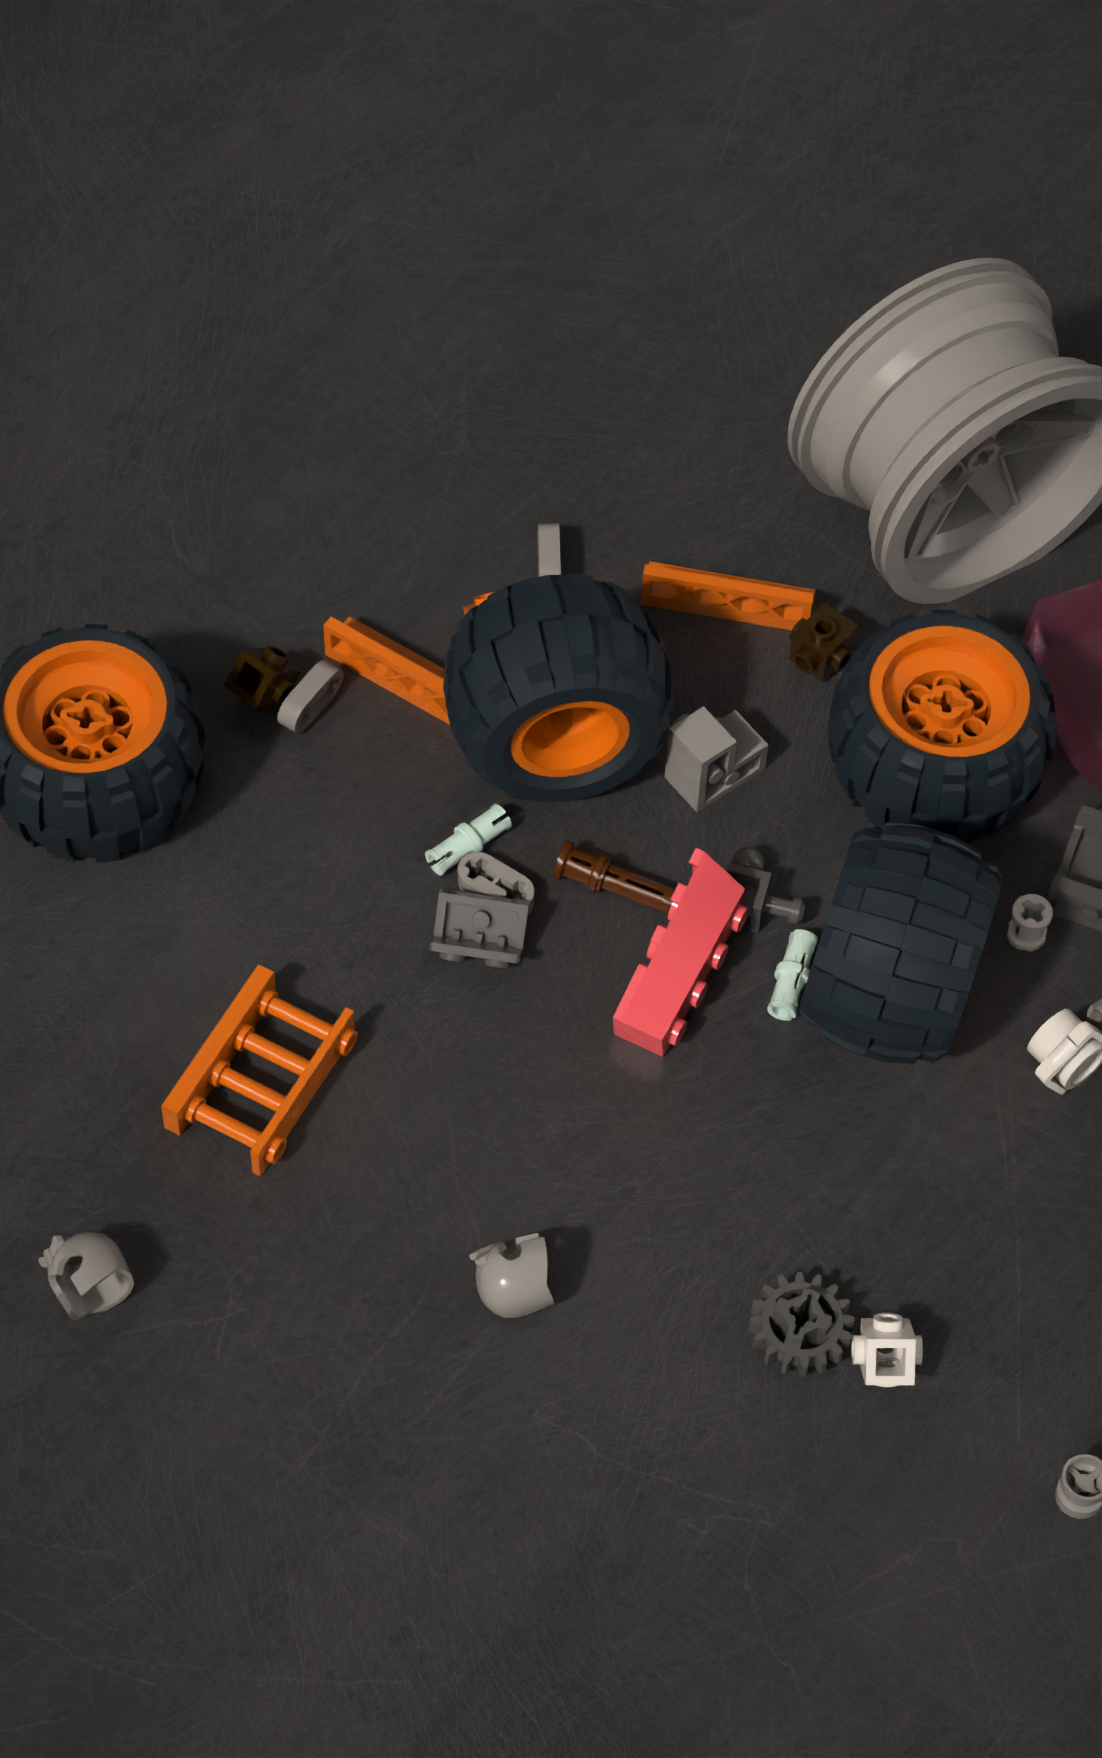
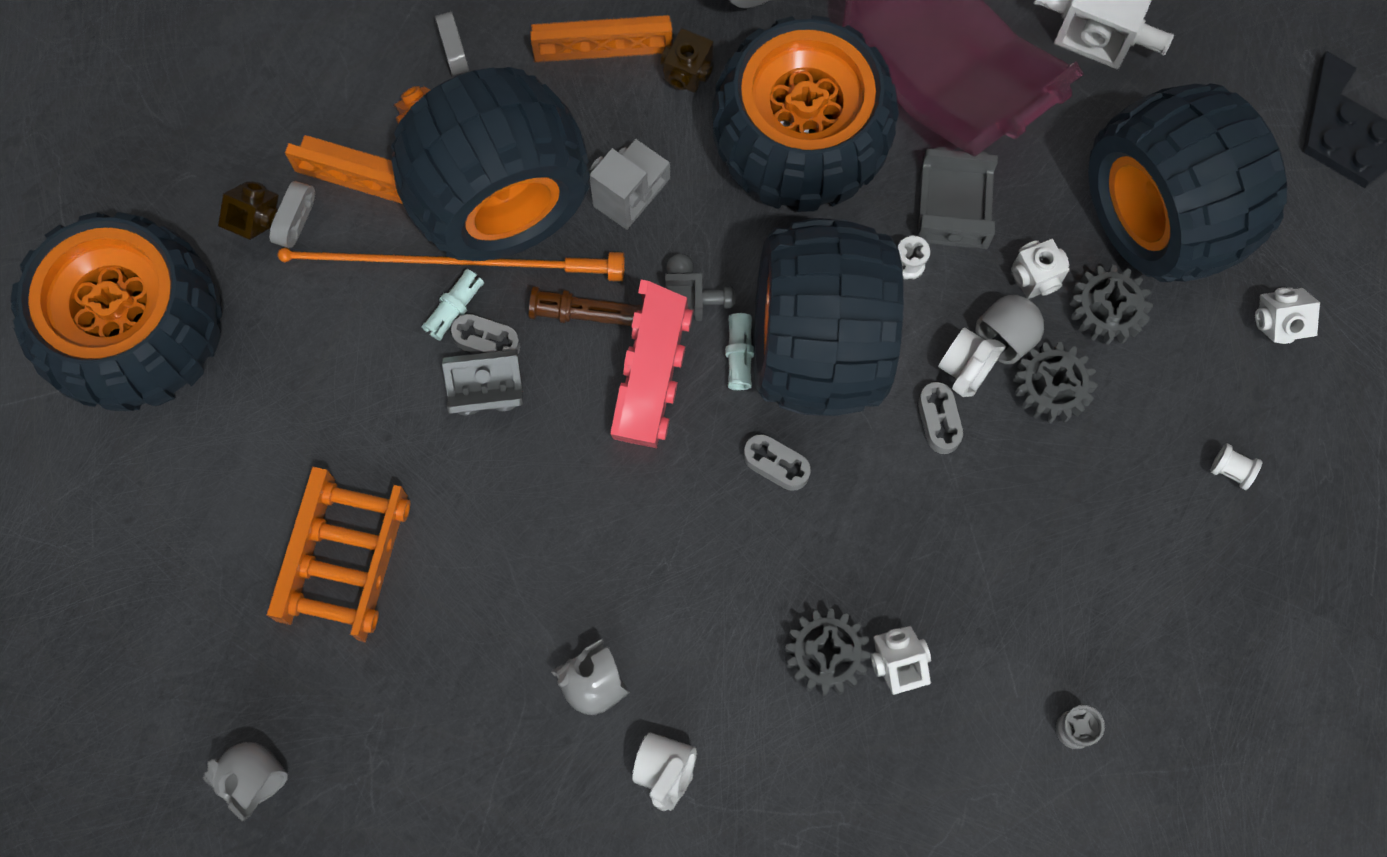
camera: 15 degrees left, 15 degrees up
(571, 1394) = (665, 768): none -> white piece
(668, 844) = (612, 266): none -> orange piece
(806, 1102) = (772, 470): none -> light grey beam
(1004, 1108) = (949, 417): none -> light grey beam

